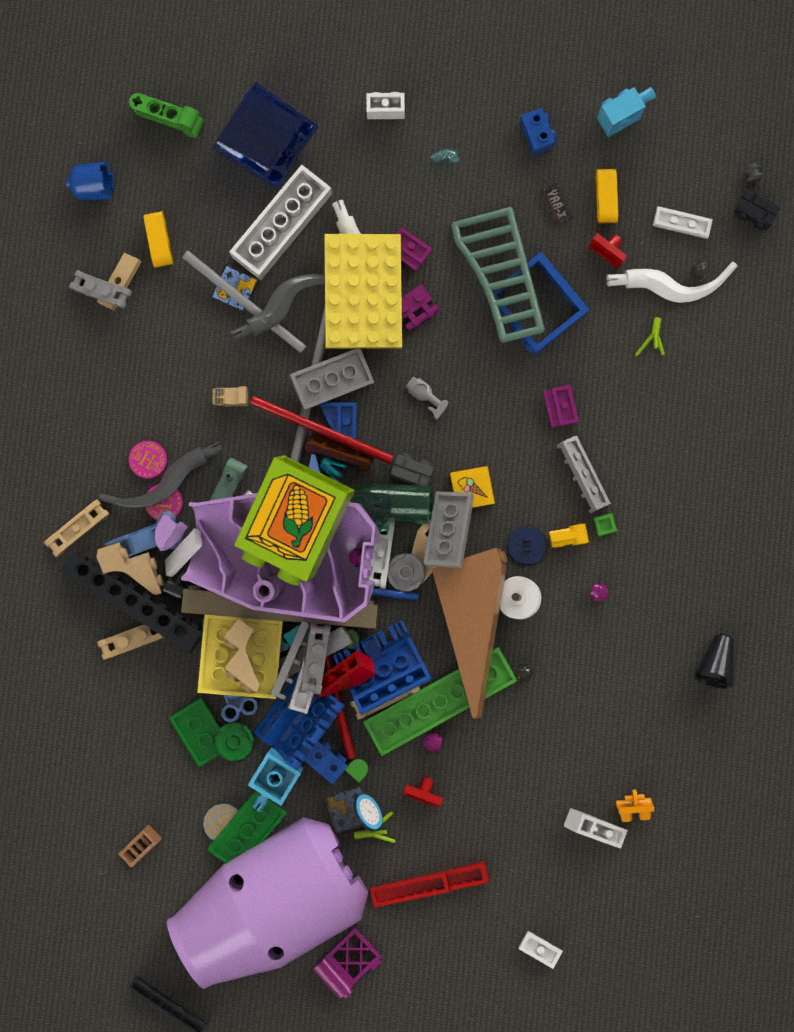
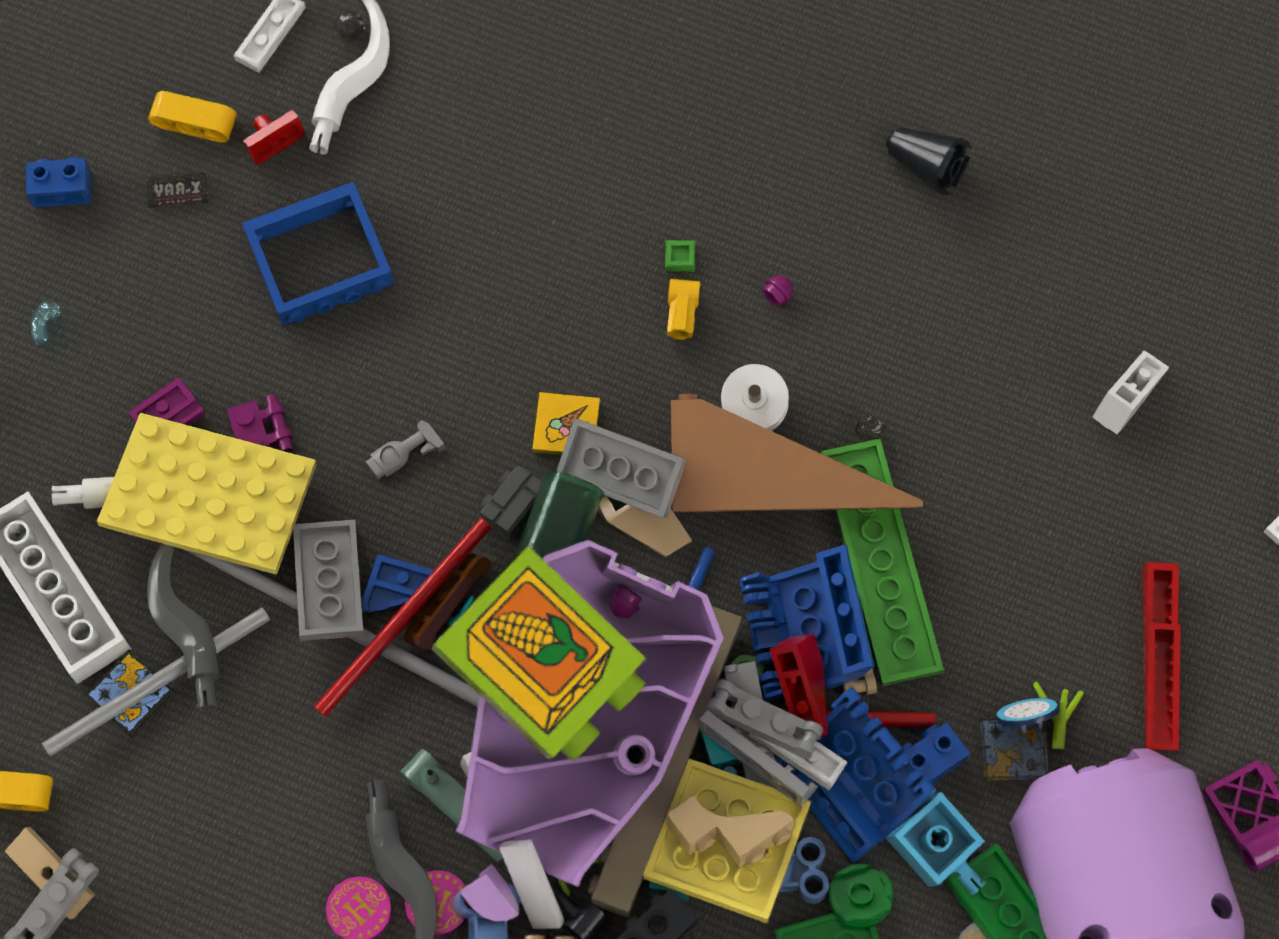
camera: 75 degrees left, 15 degrees down
(230, 396) = (301, 745): tan leg -> none
(357, 769) = (955, 713): bright green tile -> none
(406, 572) = (666, 554): light grey tile -> none
(423, 793) = (1018, 624): red tile -> none
(433, 742) = (941, 587): magenta plate -> none
(481, 272) = (270, 309): sand green bar -> none
(527, 545) = (677, 371): dark blue piece -> none
(560, 406) = (483, 265): magenta plate -> none
(584, 474) = (595, 261): light grey hinge -> none
(623, 110) = (75, 56): medium azure brick -> none
(635, 804) = (1108, 328): light orange hips -> none
(655, 333) = (419, 110): lime plant -> none

